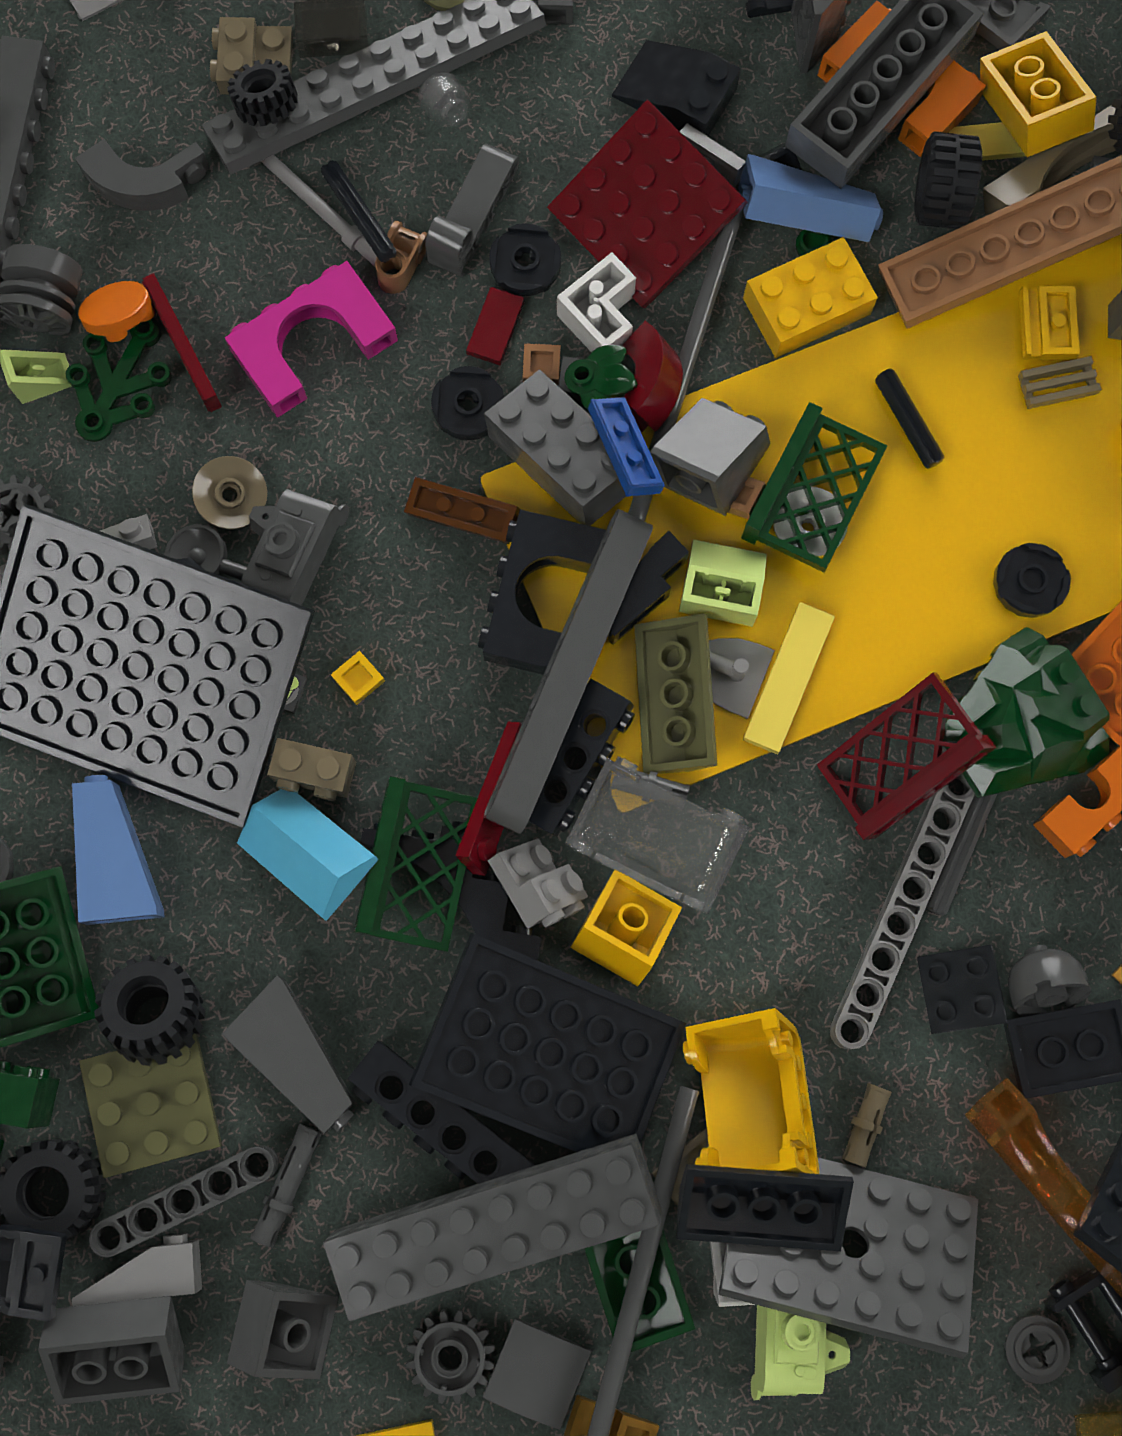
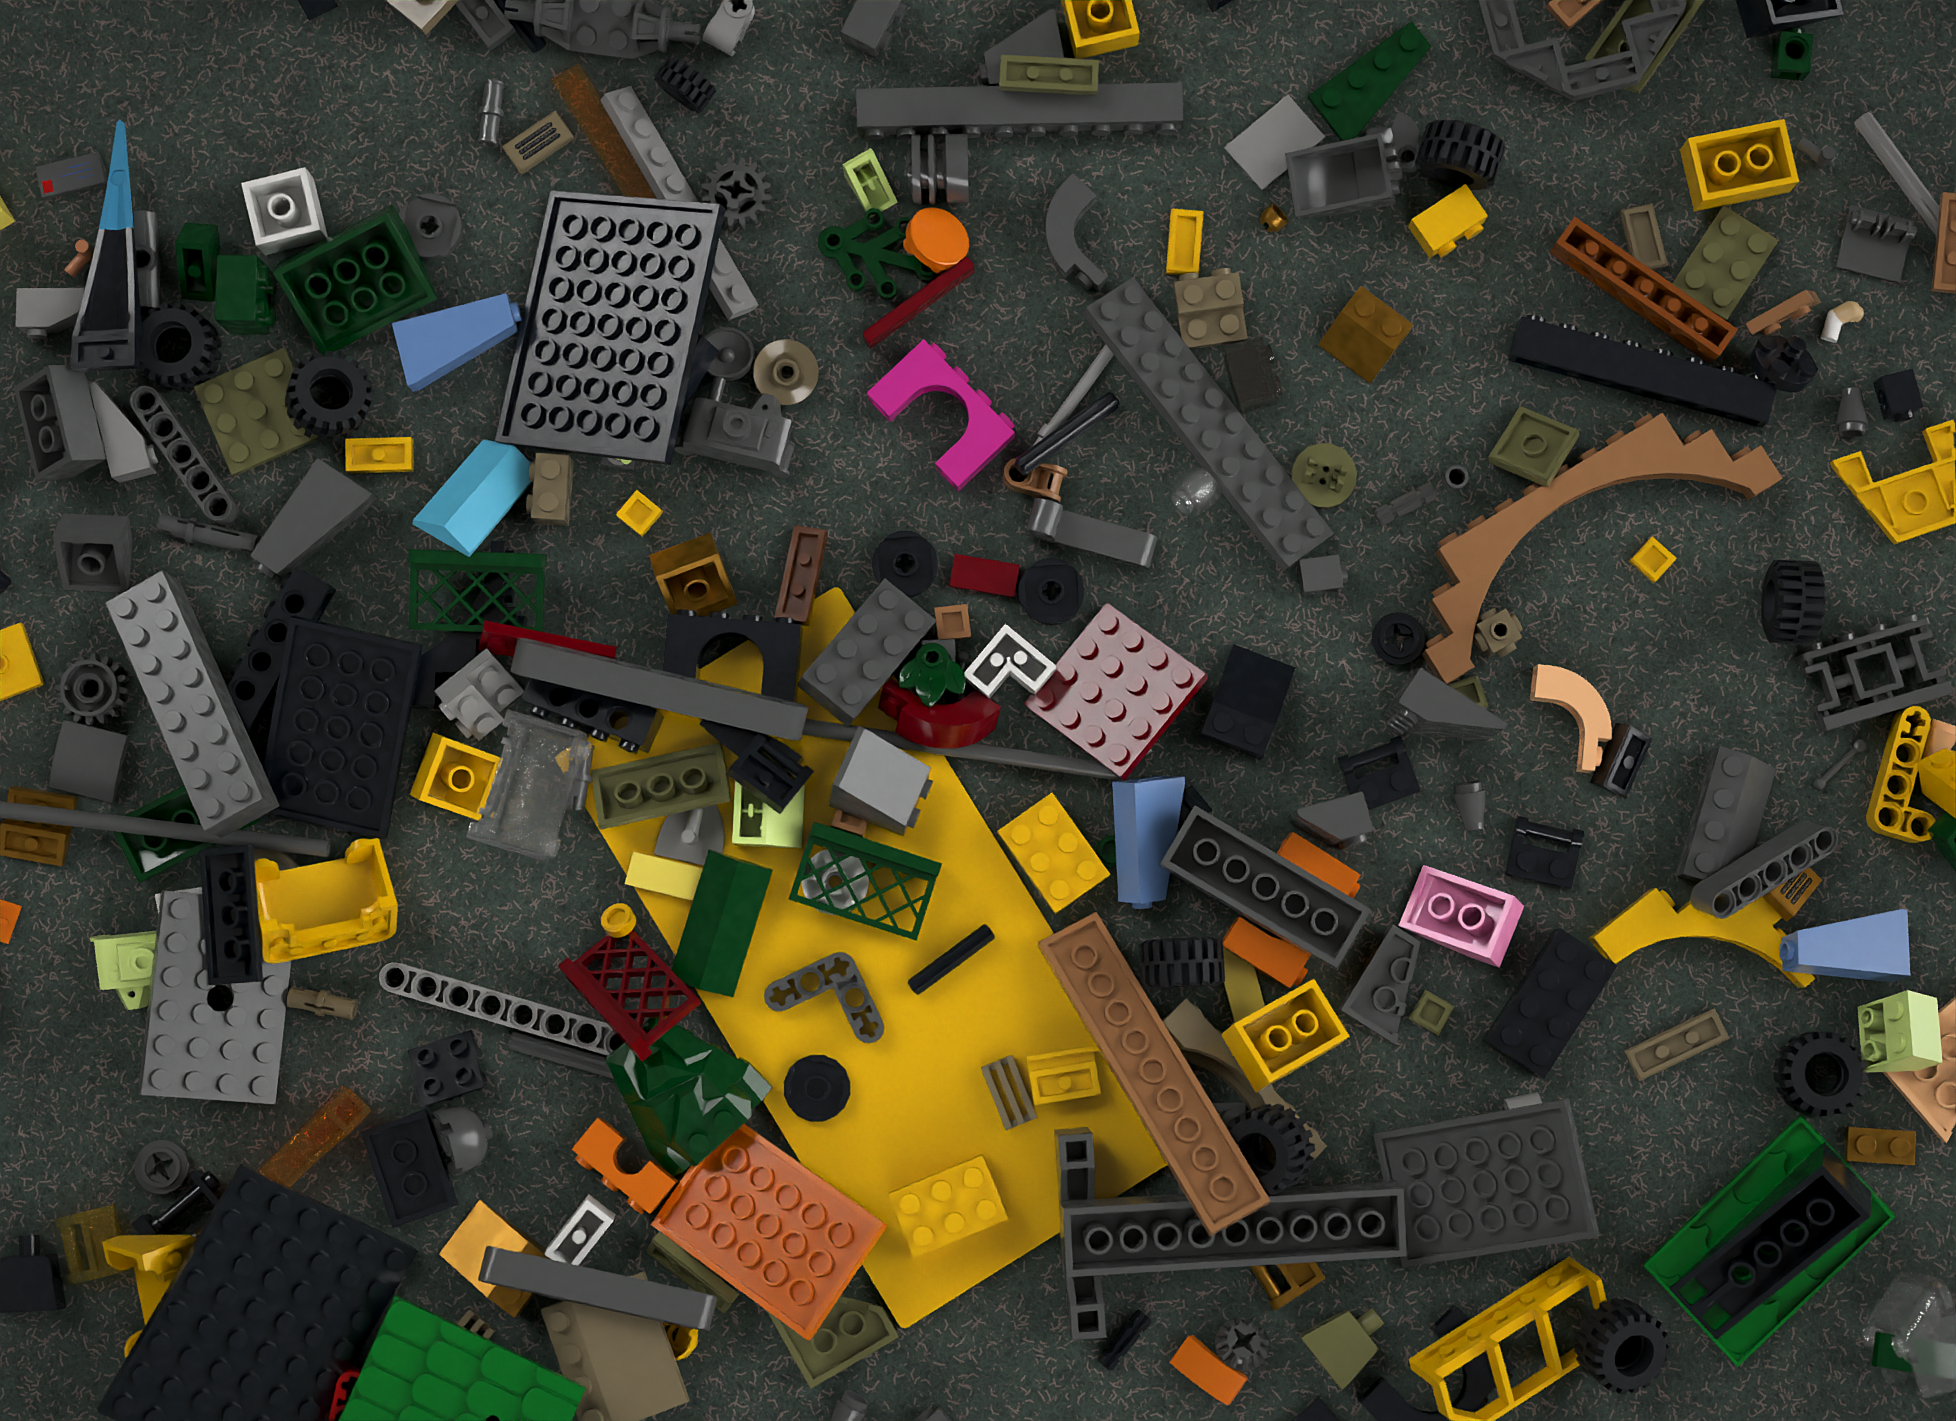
camera: 85 degrees right, 5 degrees up
(174, 73) = (1184, 241): none -> yellow tile
(231, 964) = (379, 455): none -> yellow plate
(262, 92) = (1172, 315): black tyre -> none
(441, 627) = (693, 577): none -> pearl gold slope
(625, 446) = (861, 704): blue tile -> none
(692, 564) = (766, 779): none -> black plate
(722, 159) = (1174, 754): light grey plate -> none
(816, 769) = (618, 920): none -> yellow tile
(838, 652) = (721, 923): none -> dark green slope
(924, 537) = (840, 985): none -> dark grey beam

